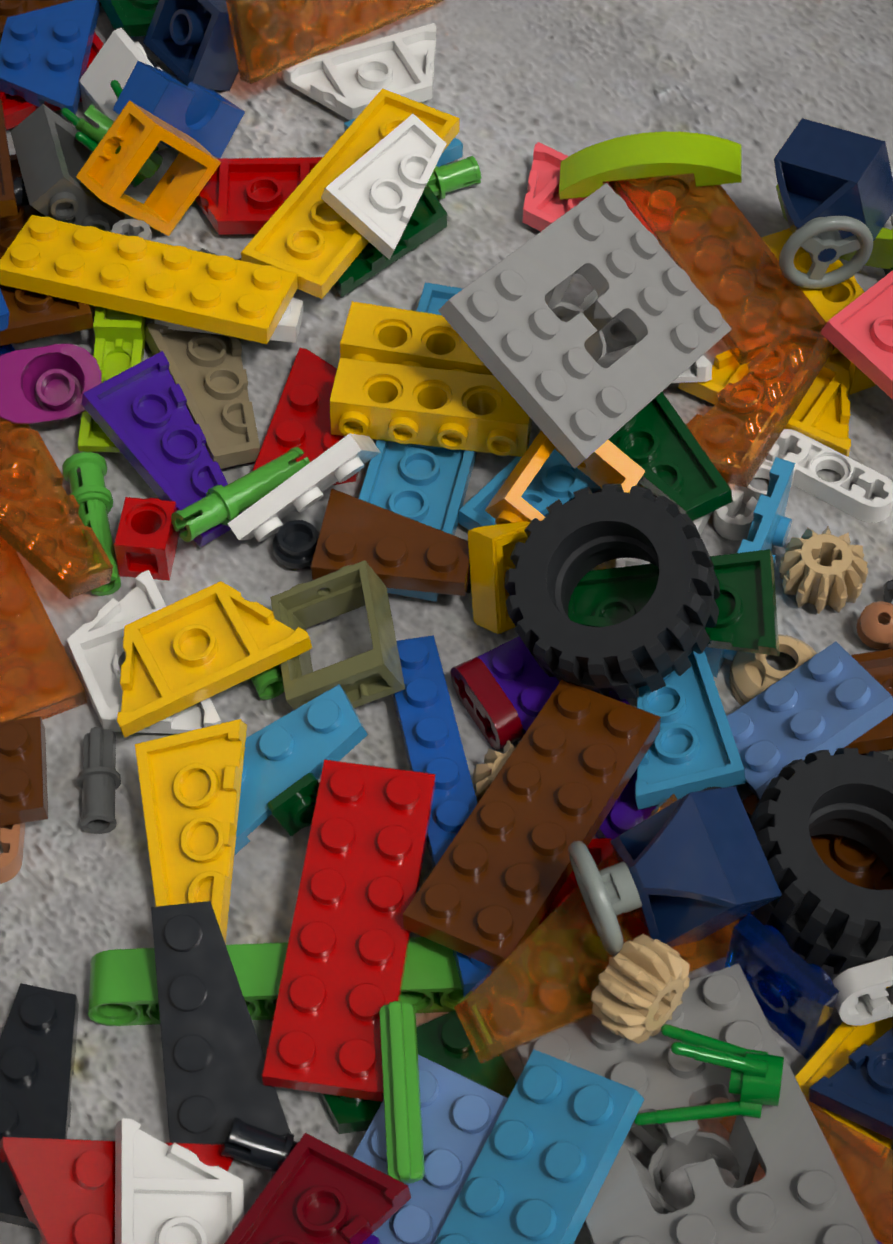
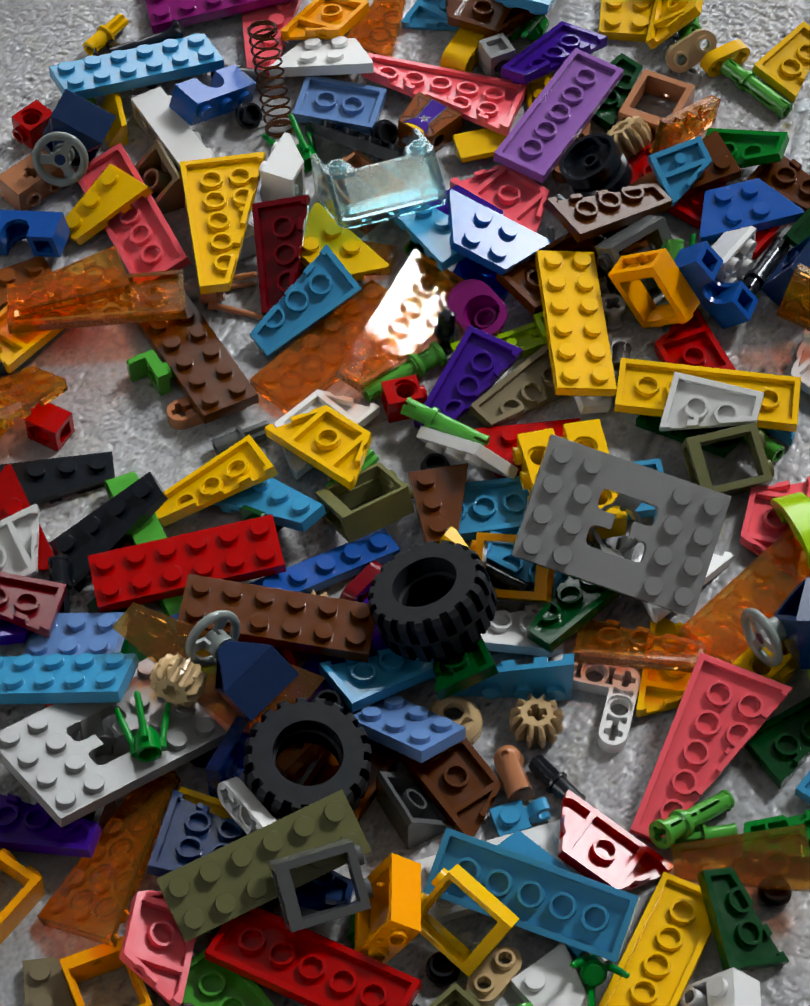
camera: 70 degrees right, 0 degrees up
(61, 431) = (446, 330): none -> black axle
(401, 1092) = (96, 610): bright green axle -> none
(449, 234) = (697, 466): none -> olive window

